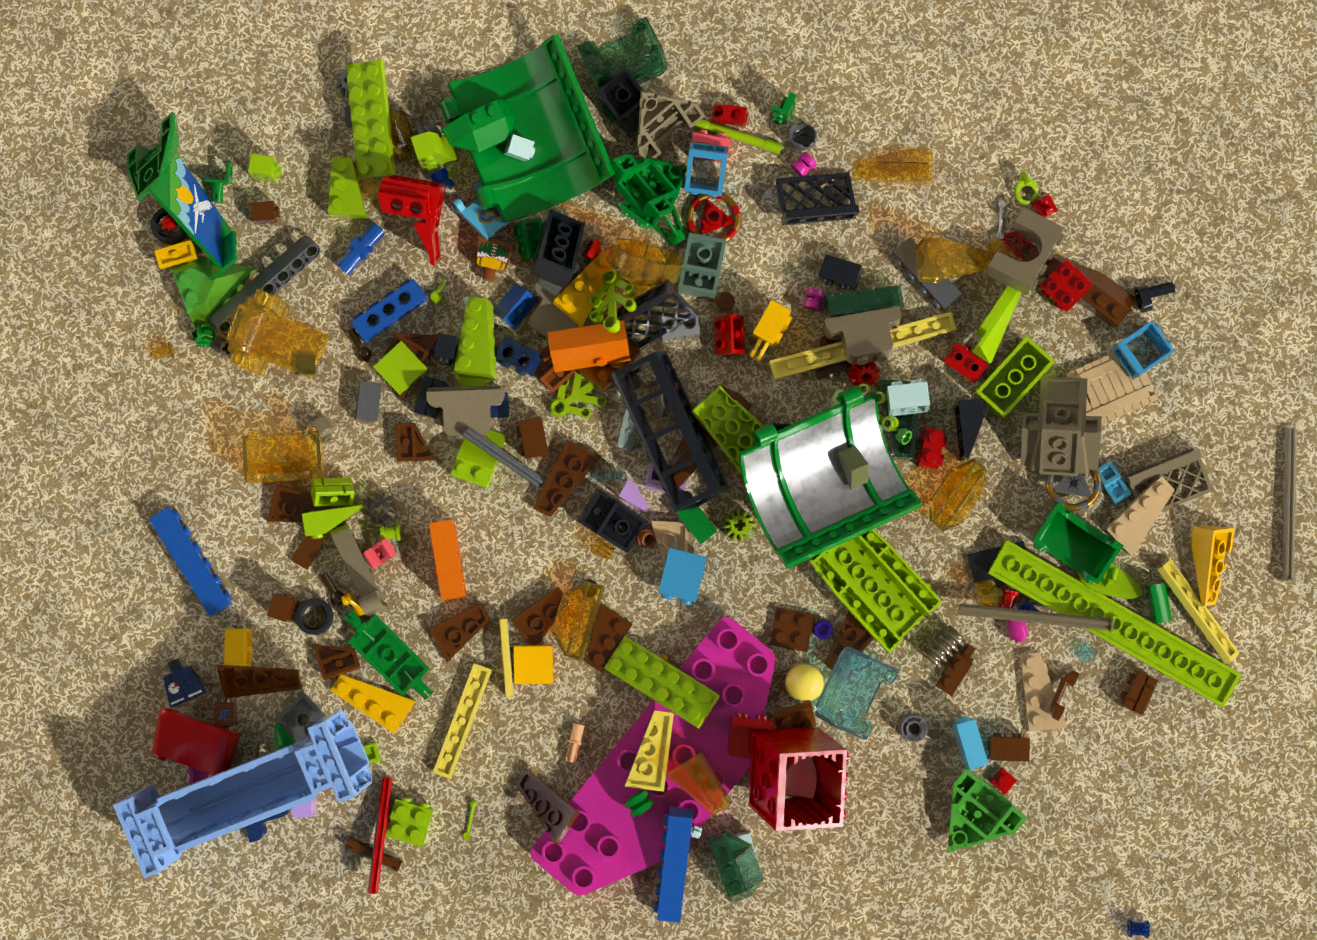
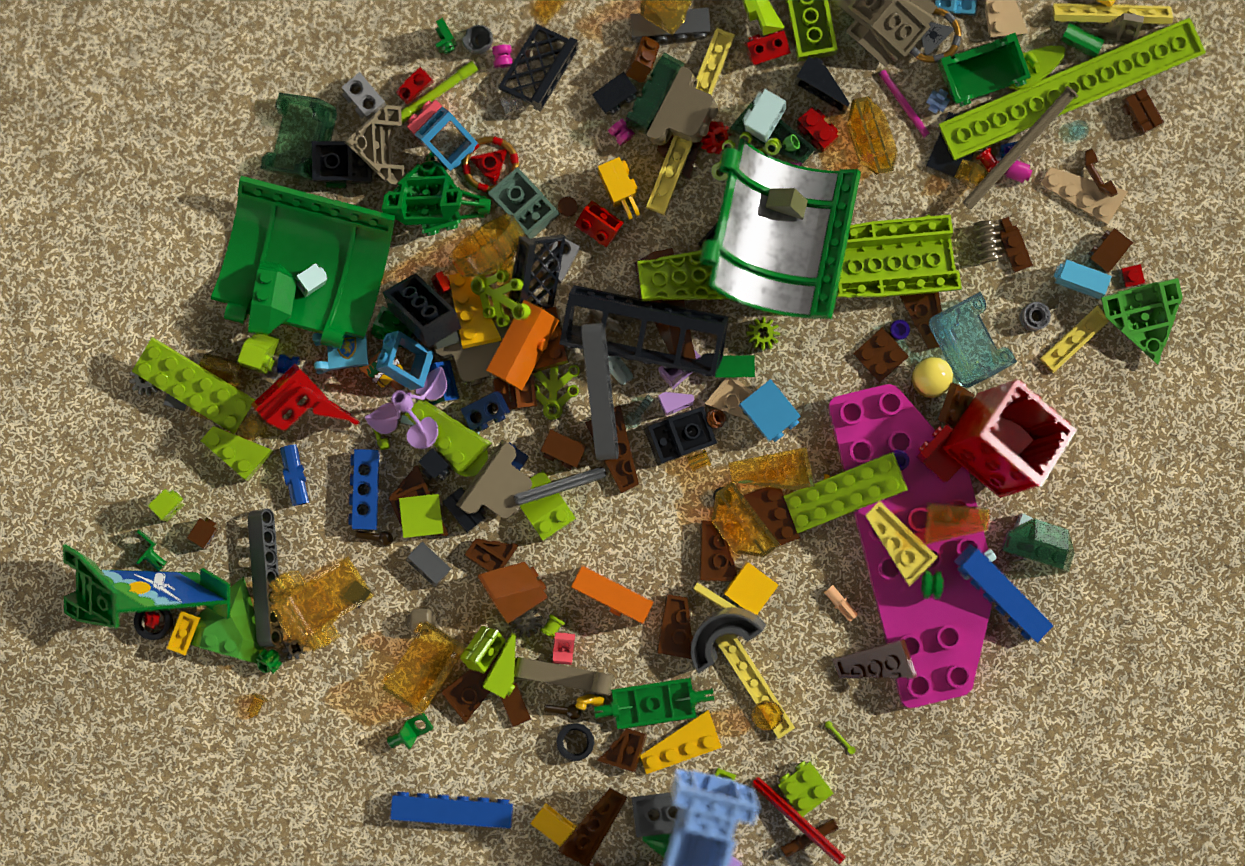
camera: 50 degrees left, 0 degrees up
(227, 484) = (409, 732): none -> green bracket
(283, 607) = (548, 761): reddish brown brick -> none
(395, 480) = (514, 589): none -> dark orange slope
(430, 126) = (236, 344): flat silver wheel -> none
(443, 749) = (767, 715): none -> clear yellow hair
(458, 284) = (423, 432): none -> lavender plant
(490, 661) = (719, 623): none -> dark grey brick
(514, 281) = (420, 366): none -> dark azure window
(597, 432) = (600, 391): none -> dark grey beam
(641, 618) = (778, 470): none -> clear yellow wedge
(695, 83) = (367, 94): none -> light grey brick
(720, 706) = (902, 459): none -> dark purple tile
(882, 273) = (642, 59): none -> reddish brown brick
(918, 772) = (1074, 339): none -> light yellow tile
(1003, 501) = (904, 103): none -> dark pink bar
(1024, 526) = (938, 101): none -> light blue gear
(1192, 628) = (1123, 28): none -> dark tan wing

